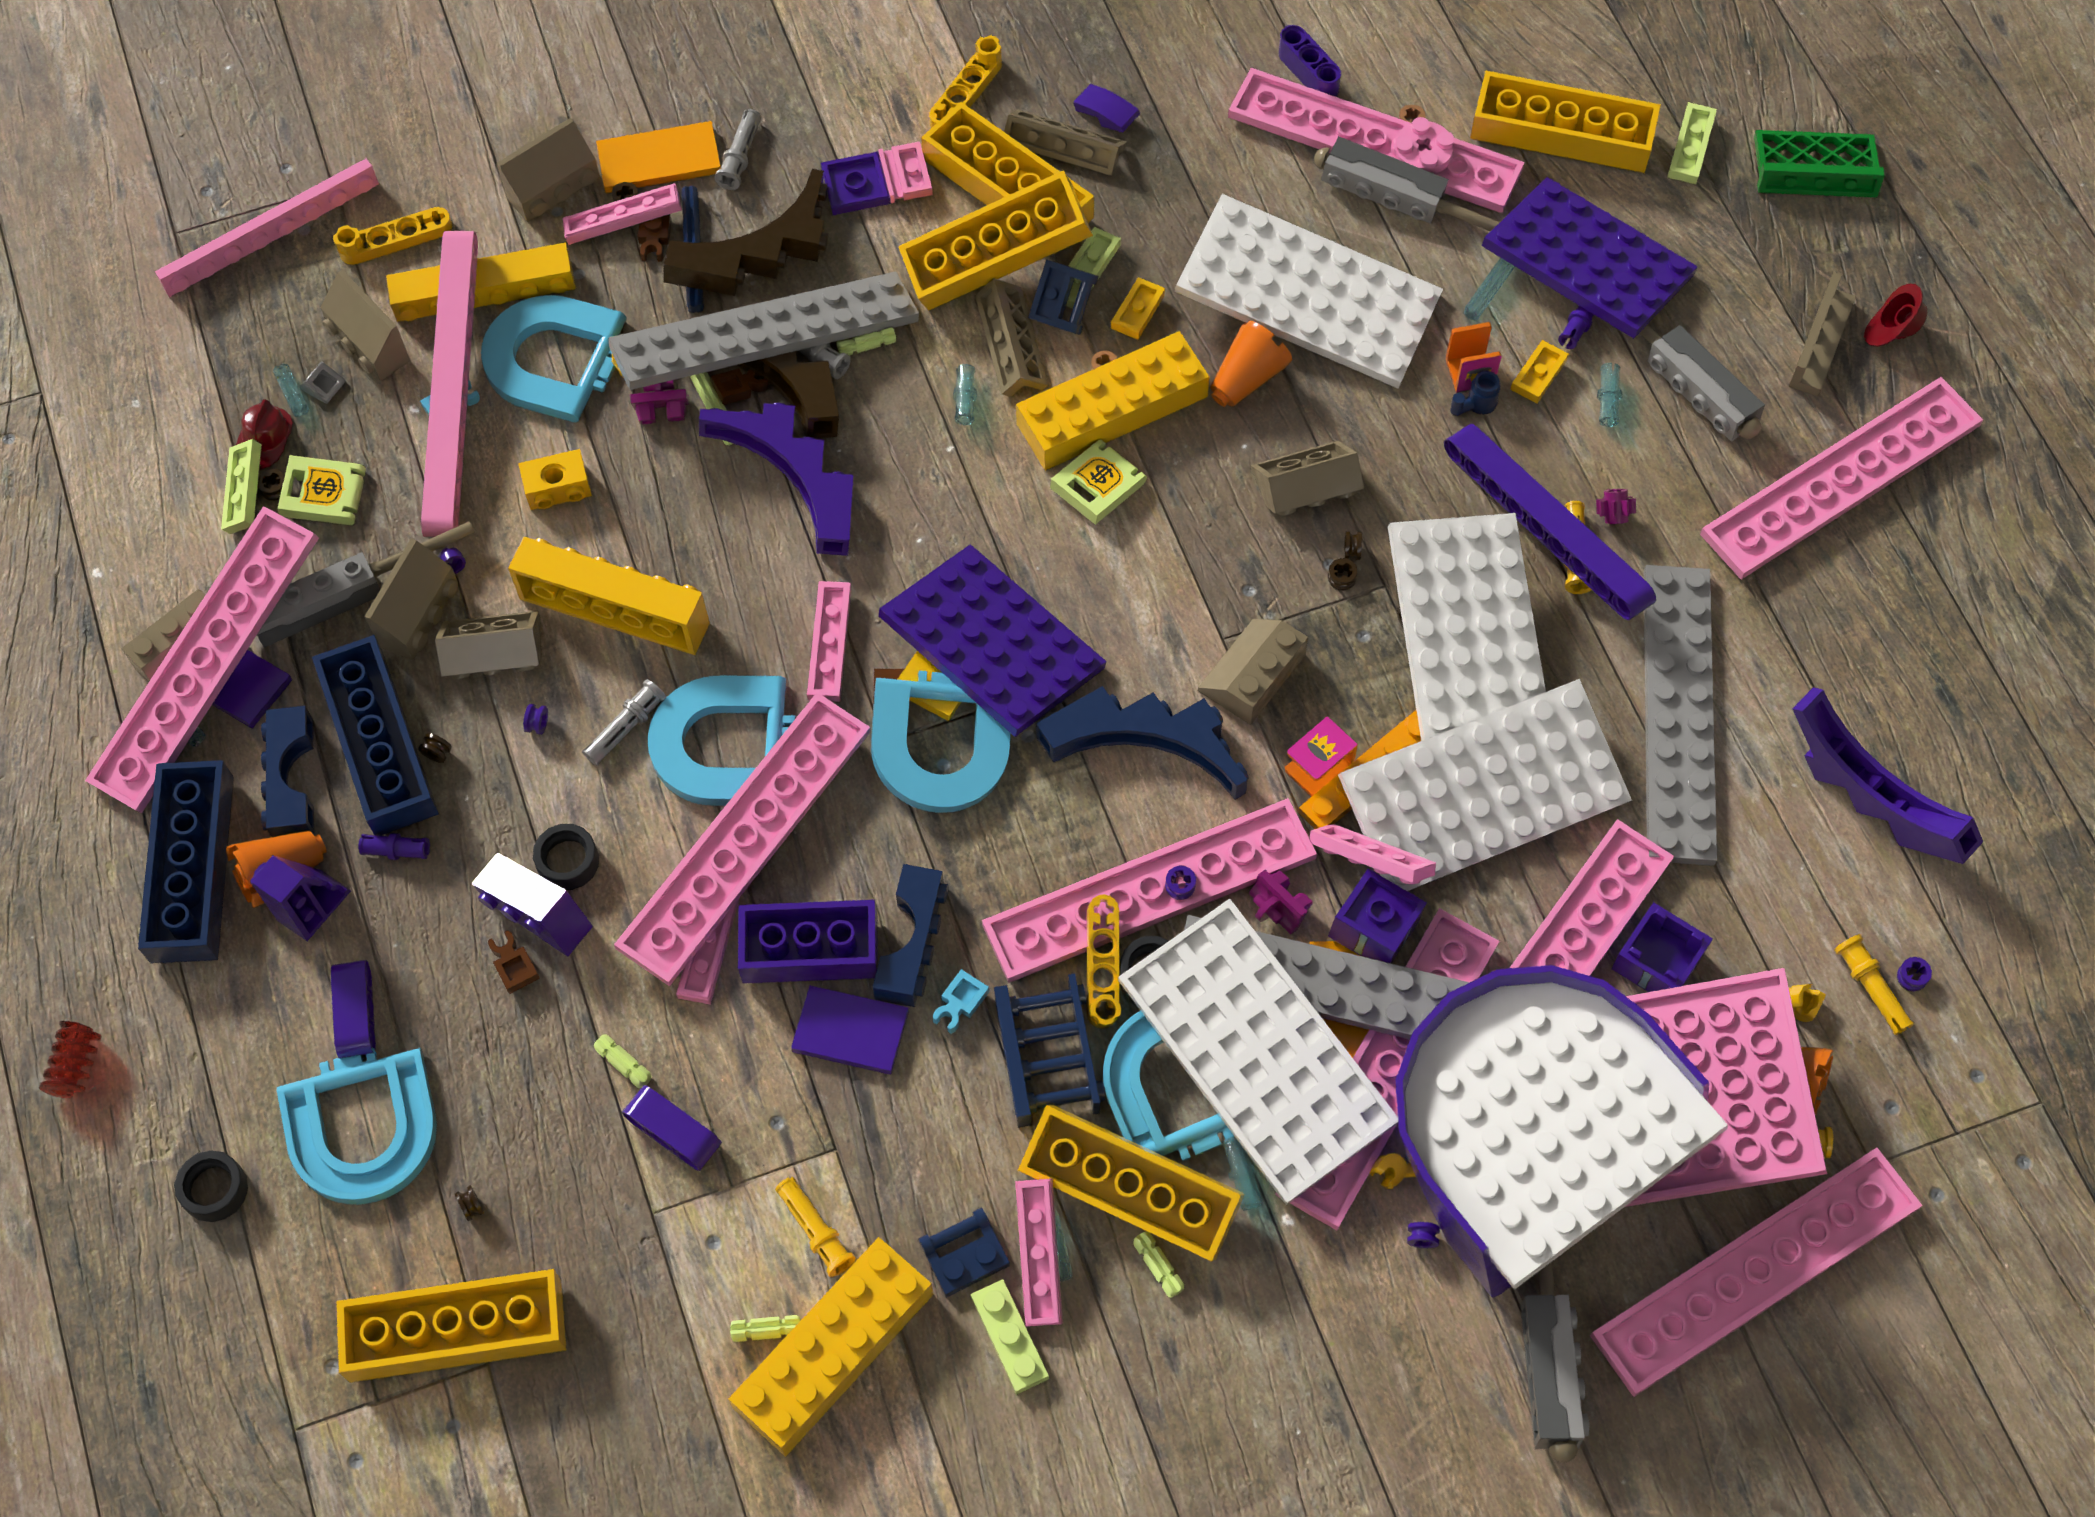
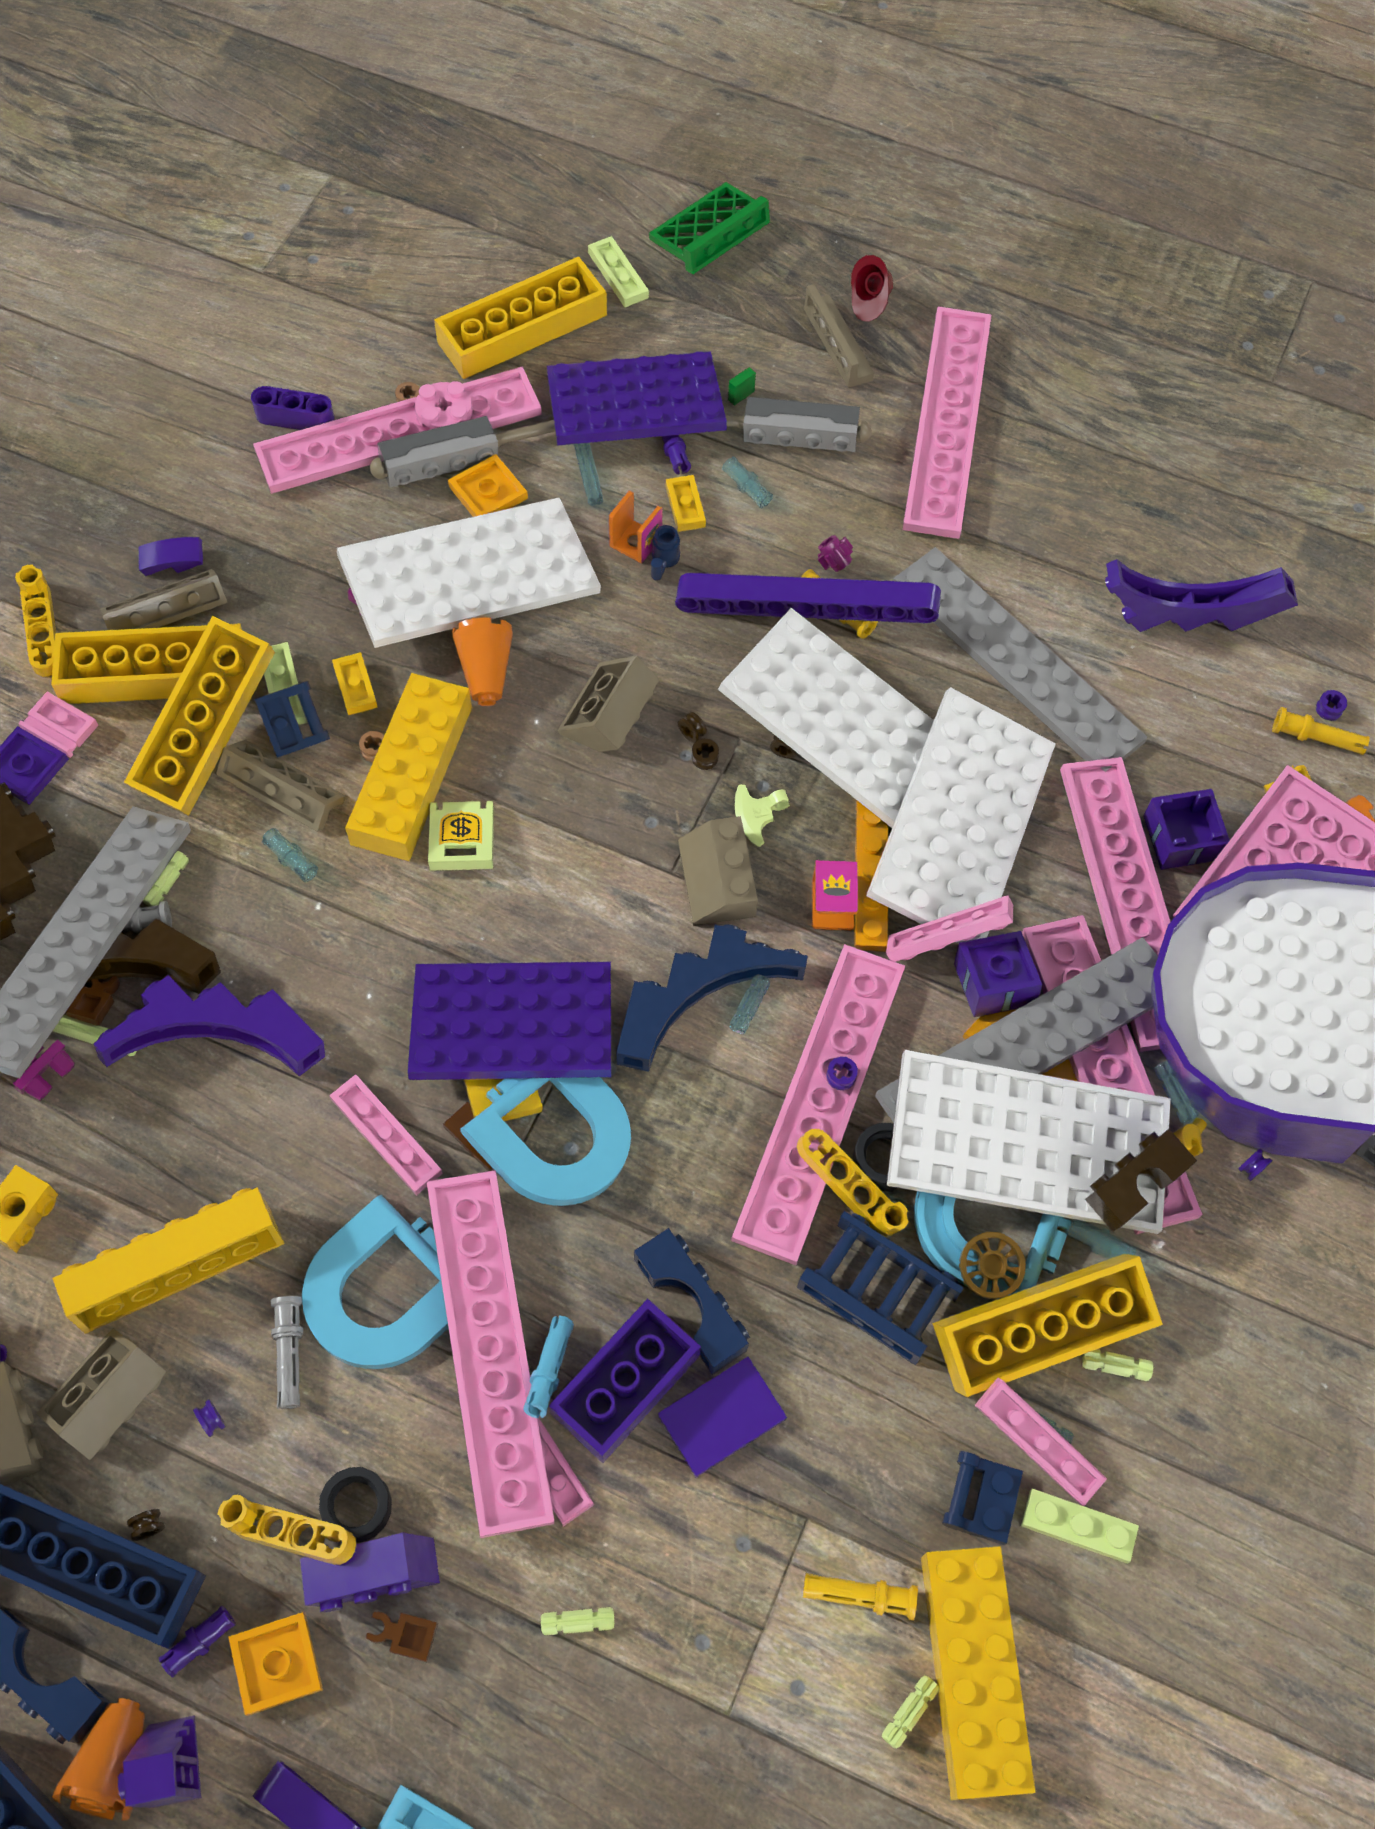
camera: 50 degrees left, 0 degrees up
(423, 904) = (275, 1663): none -> light orange plate
(491, 792) = (240, 1514): none -> yellow beam
(671, 1127) = (674, 1633): dark purple beam -> none
(756, 888) = (544, 1378): none -> medium azure pin
(962, 997) = (778, 1308): medium azure plate -> none
(1138, 1107) = (992, 1265): none -> pearl gold wheel
(1174, 779) = (749, 1004): none -> clear light blue axle
(1277, 903) = (916, 1025): magenta hips -> none
(1334, 650) = (758, 812): none -> yellowish green piece
(1335, 1144) = (1118, 1198): none -> dark brown arch
(1395, 238) = (488, 487): none -> light orange plate
(1691, 314) = (741, 386): none -> green tile

